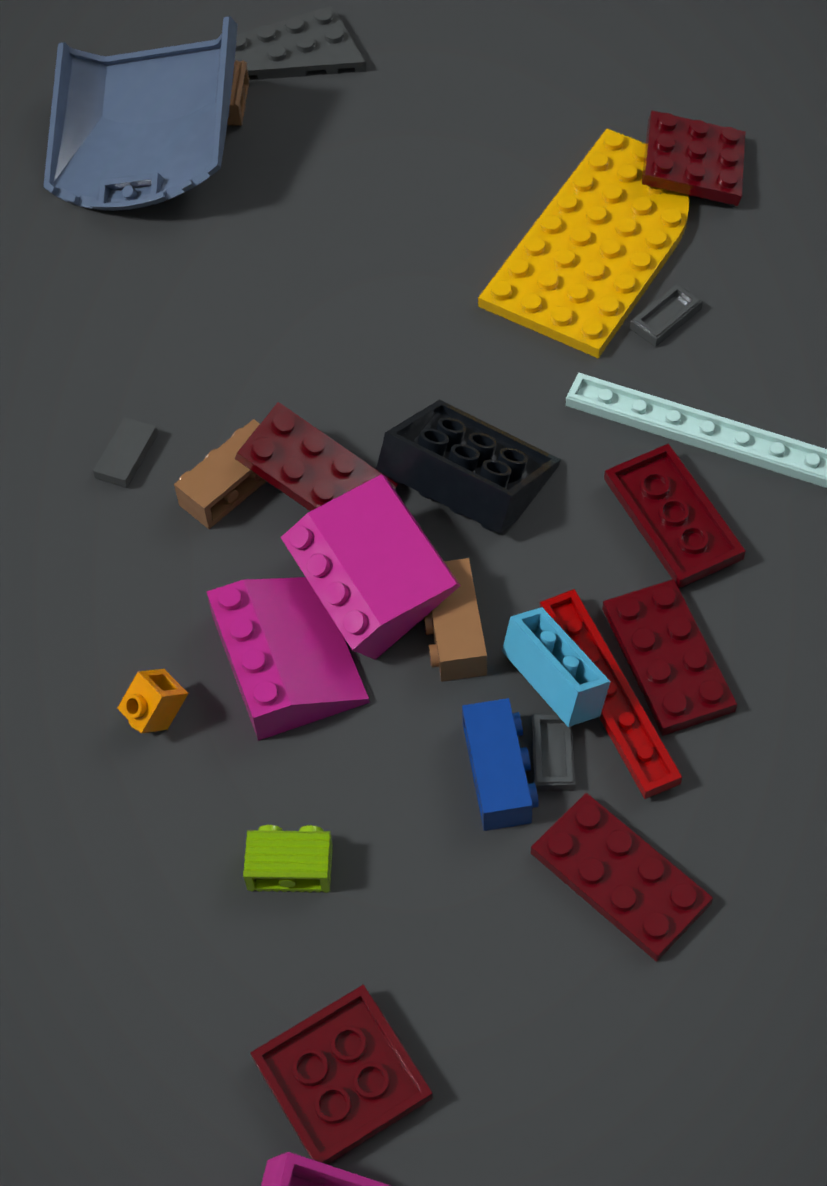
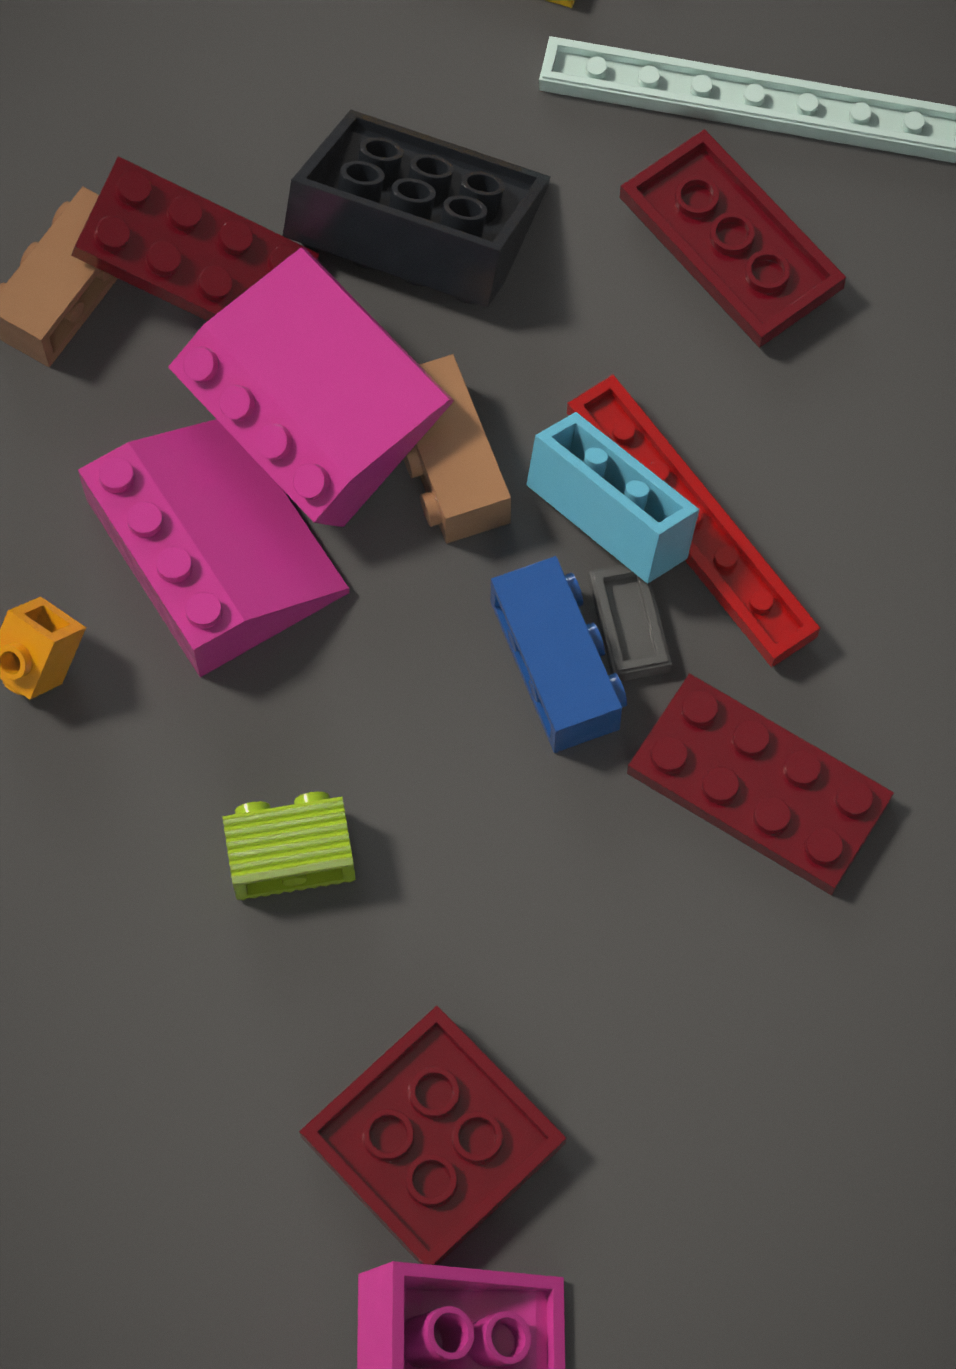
camera: 15 degrees left, 10 degrees up
(669, 657) = (764, 452): dark red plate -> none

